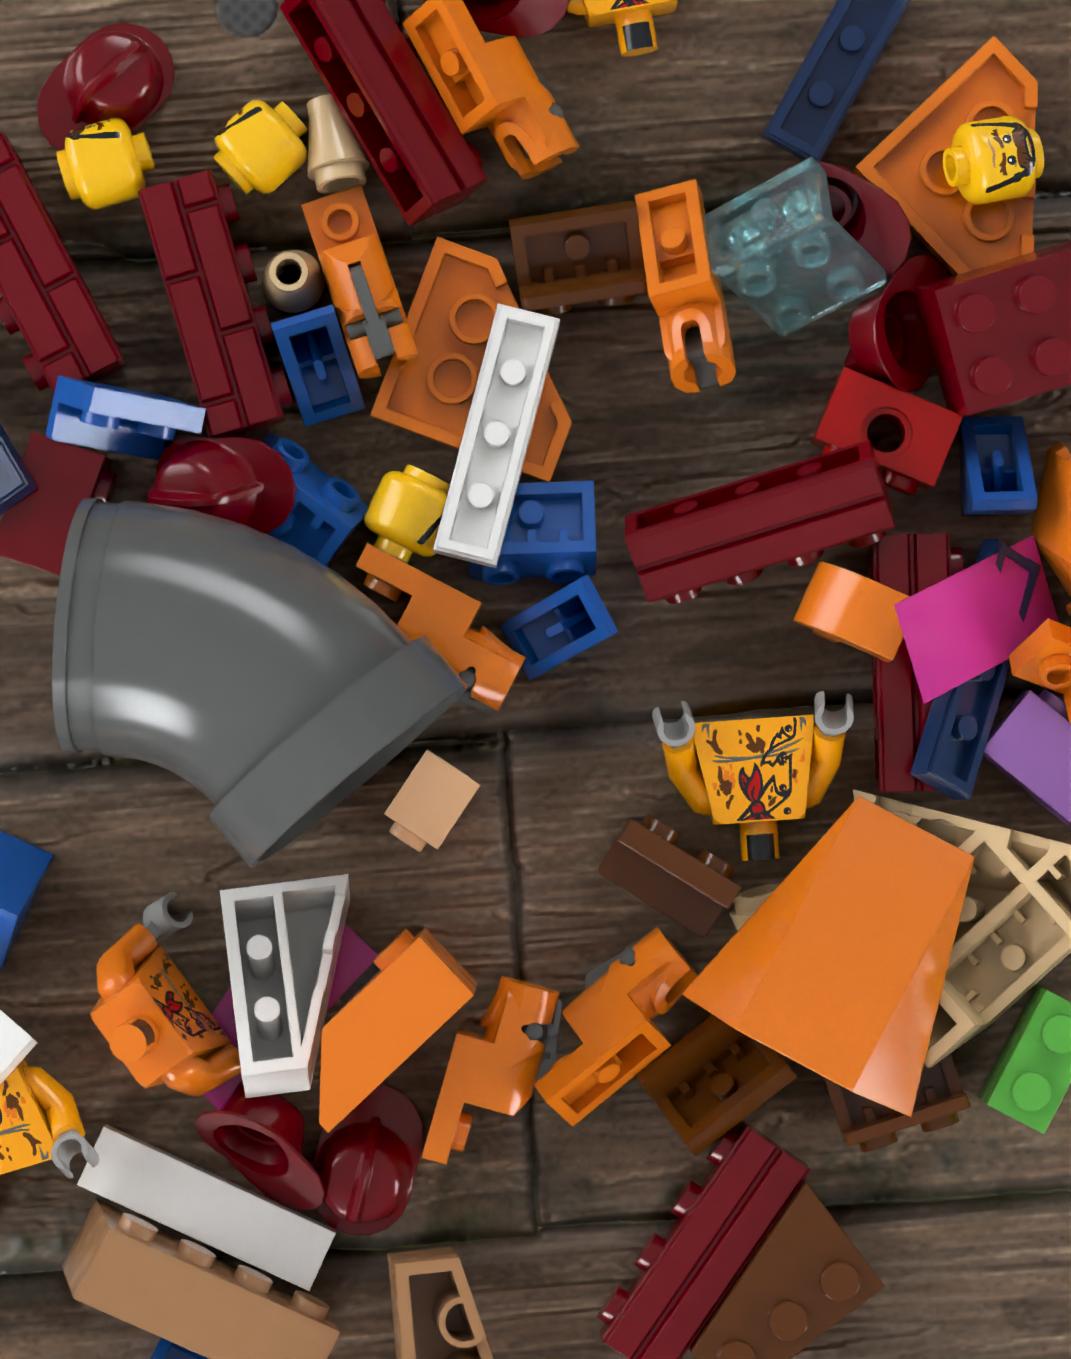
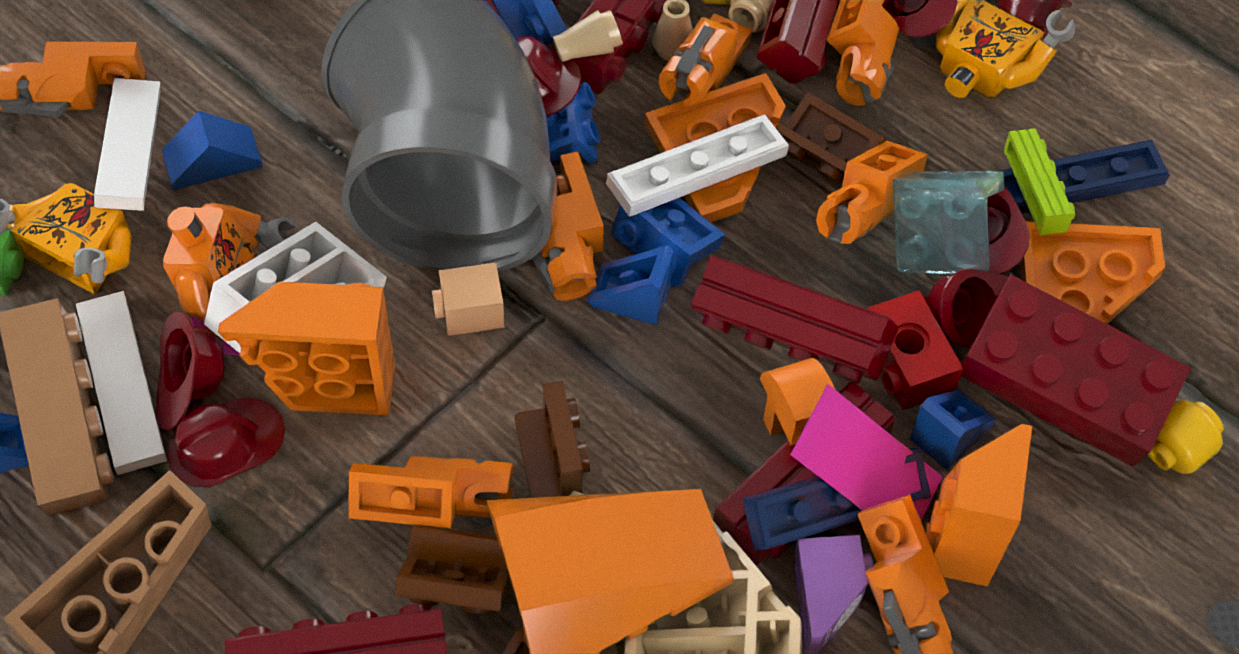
camera: 45 degrees right, 30 degrees down
(242, 404) = (589, 37): none -> tan cone
(318, 365) = (638, 78): blue slope -> none
(407, 512) = (607, 159): yellow head -> none
(498, 1066) = (336, 443): orange plate -> none
(755, 768) = (658, 439): light orange torso -> none
(833, 103) = (1039, 182): none -> lime piece
(994, 160) = (1105, 266): yellow head -> none

